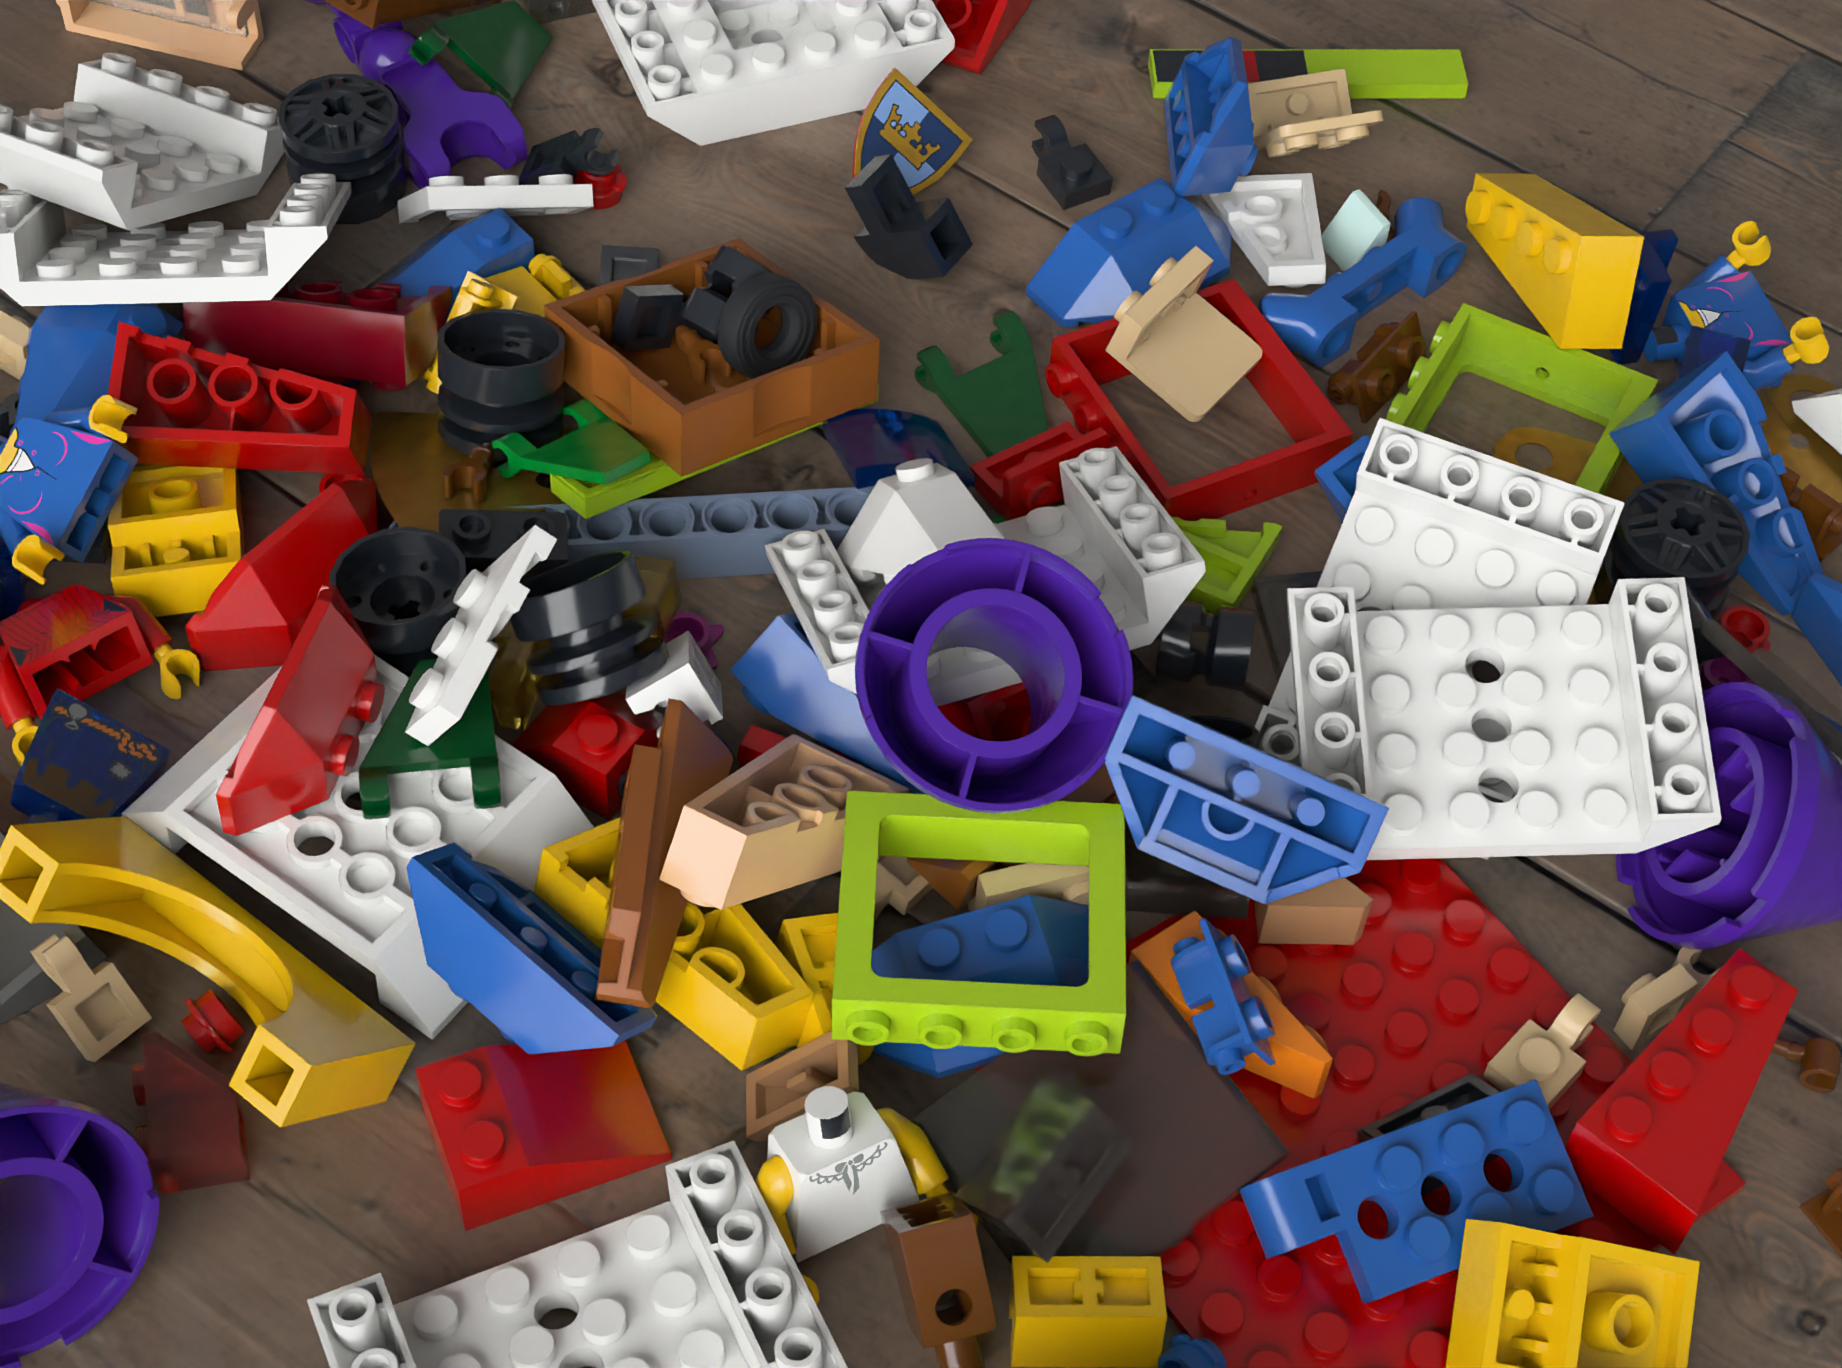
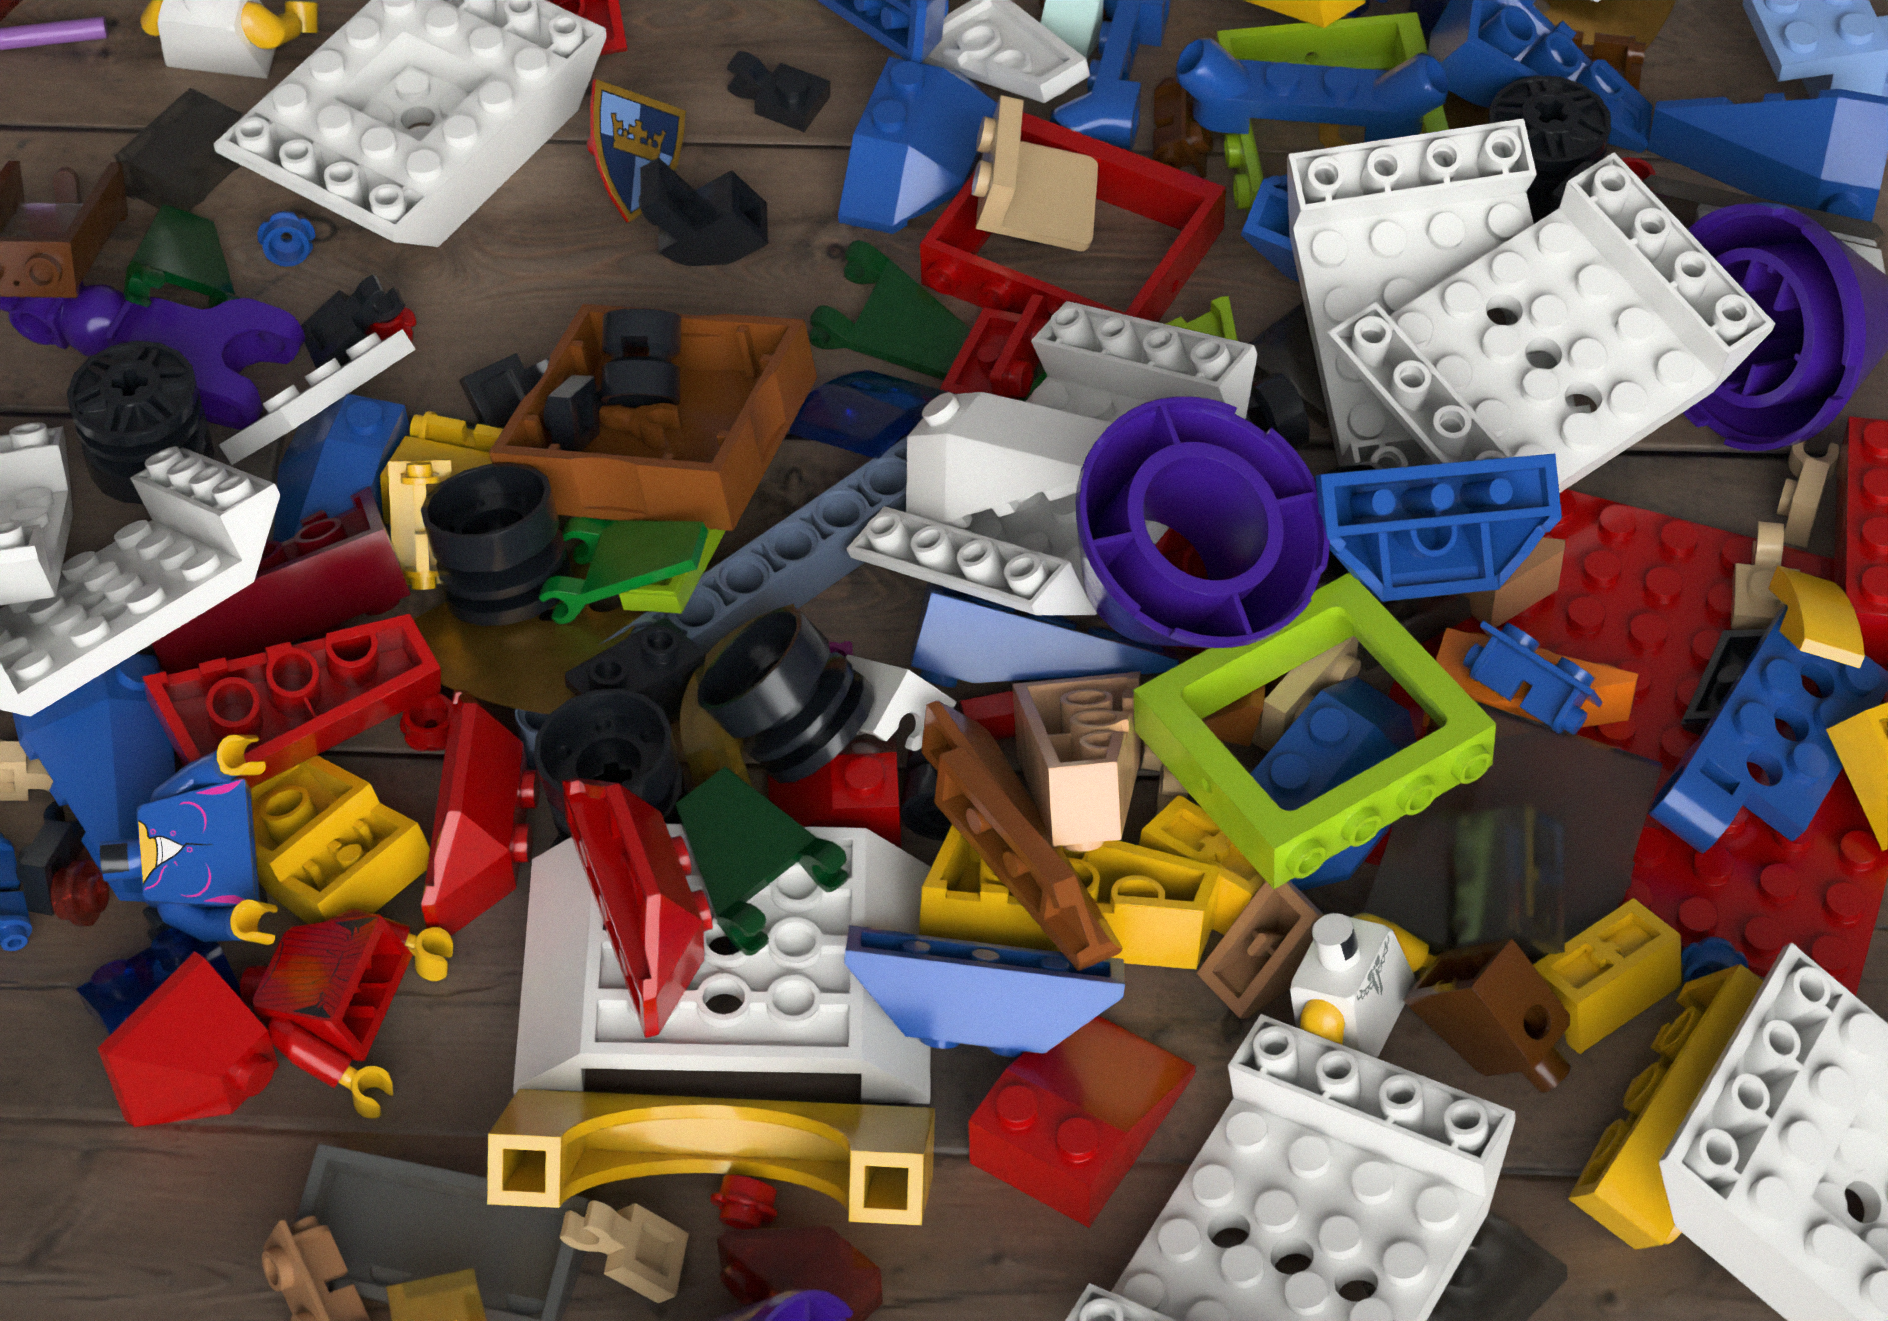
camera: 30 degrees left, 0 degrees up
(84, 765) = (446, 1079): clear blue torso -> none
(465, 641) = (723, 749): white wing -> none
(470, 473) = (544, 633): reddish brown piece -> none
(577, 76) = (286, 251): none -> blue plate
(744, 311) = (696, 363): black tyre -> none
(1425, 357) = (1235, 90): none -> blue plate
(1539, 1110) = (1818, 617): none -> yellow slope

